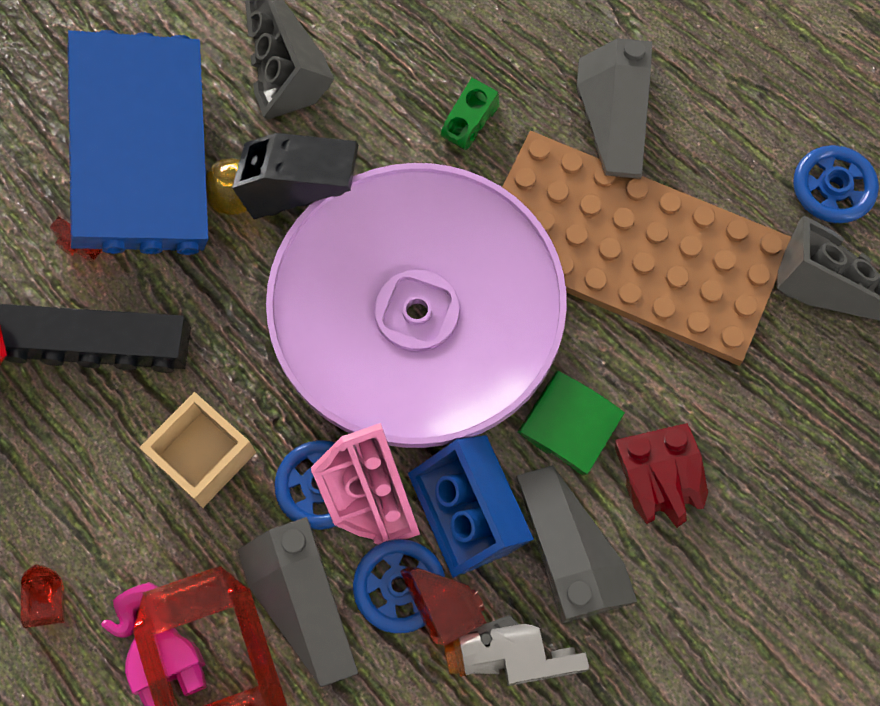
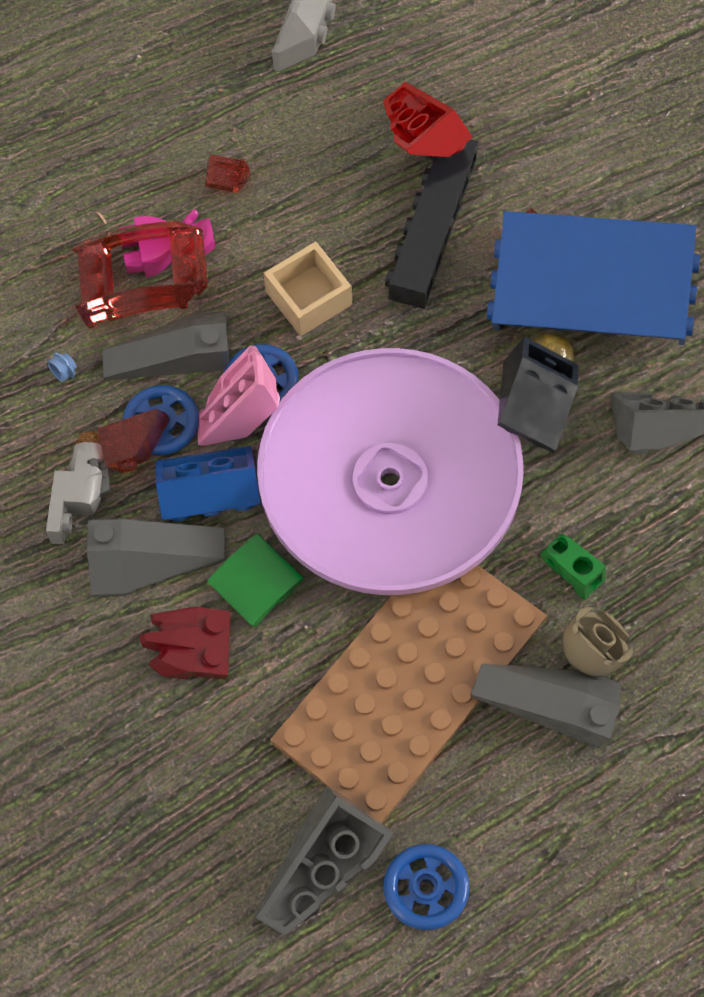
camera: 105 degrees right, 5 degrees down
(556, 75) = (595, 643): none -> dark tan cylinder

